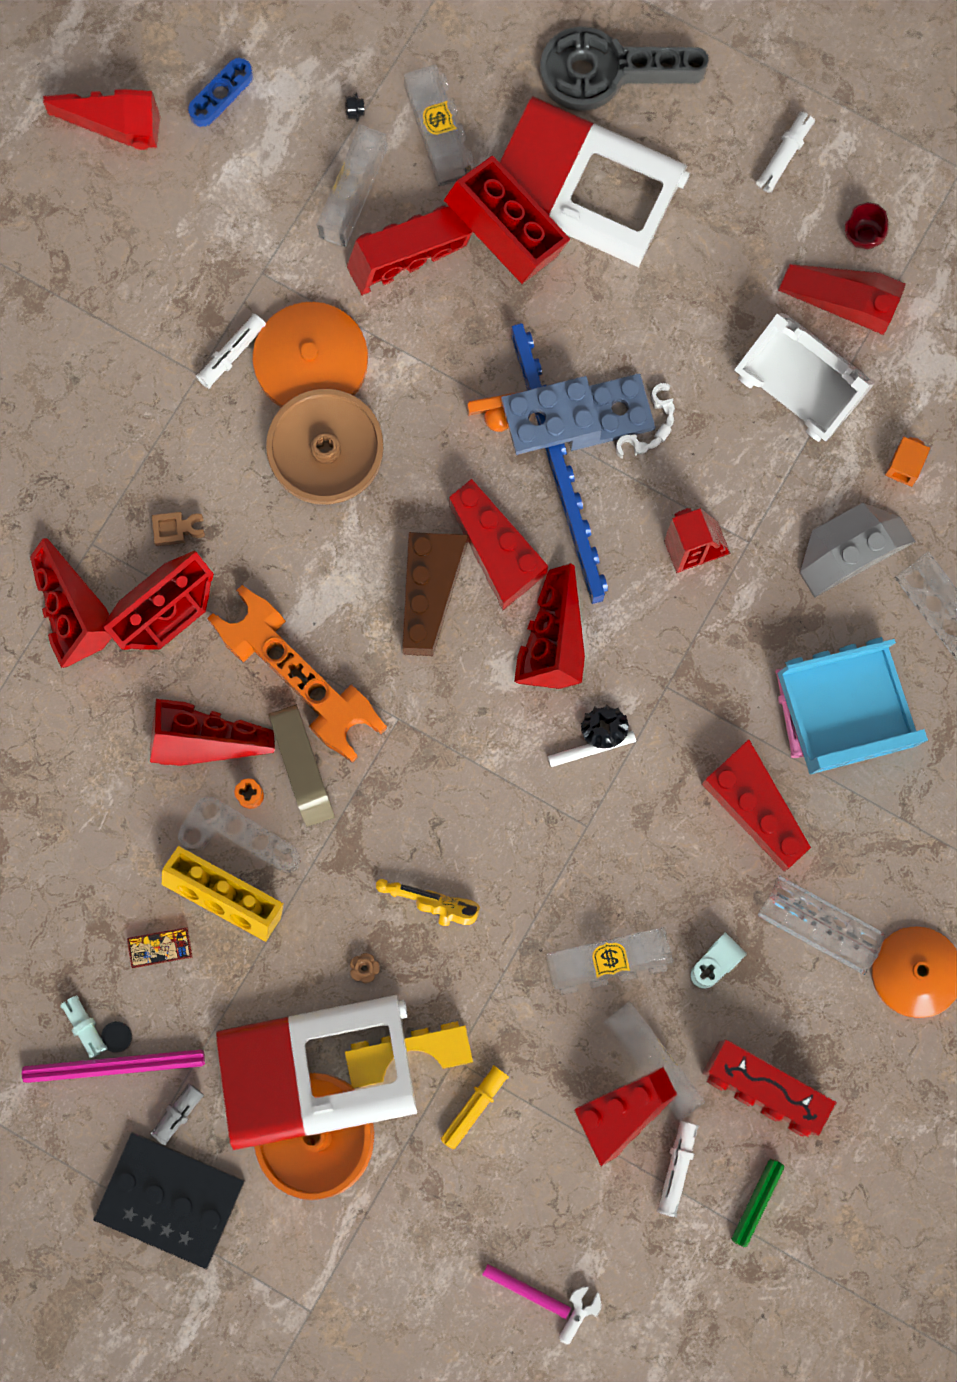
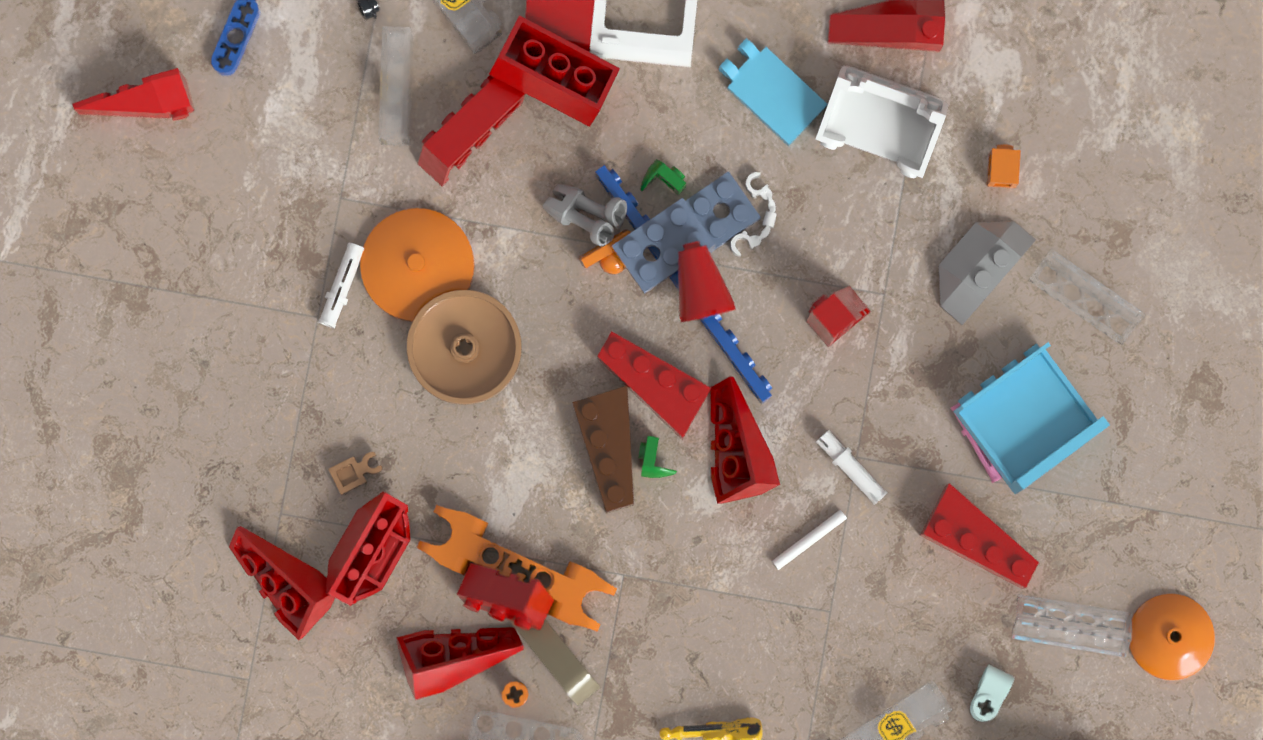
camera: 20 degrees left, 5 degrees up
(275, 693) = (505, 597): none -> red wedge
(465, 609) = (648, 453): none -> green plate
(478, 348) = (574, 200): none -> light grey piece
(573, 461) = (701, 284): none -> red cone
(582, 359) = (670, 177): none -> green plate
(600, 737) = (814, 528): black gear -> none
(653, 682) = (855, 471): none -> white pin
(708, 315) = (772, 92): none -> medium azure tile

